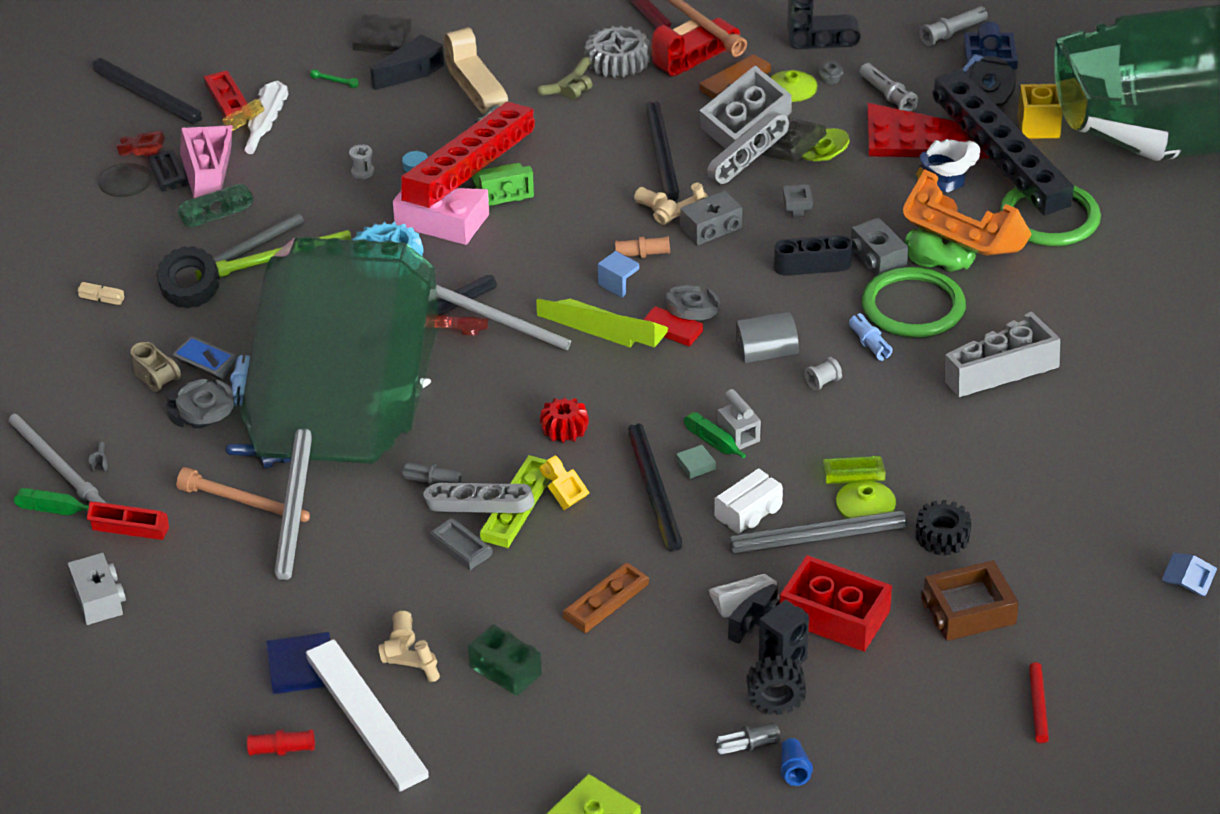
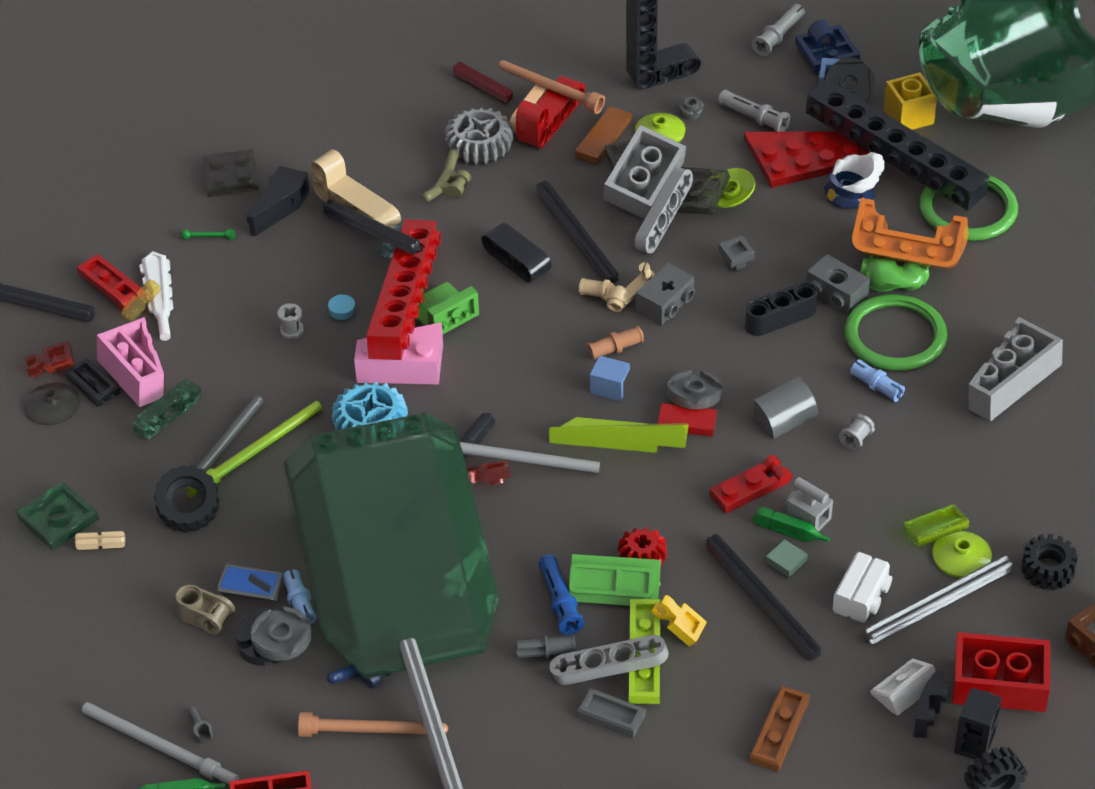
camera: 20 degrees left, 5 degrees up
(76, 264) = (57, 515): none -> clear green plate
(468, 444) = (563, 603): none -> blue pin
(472, 100) = (371, 226): none -> black axle
(521, 434) = (613, 579): none -> bright green piece
(595, 153) = (516, 252): none -> black beam
(697, 393) = (750, 484): none -> red plate

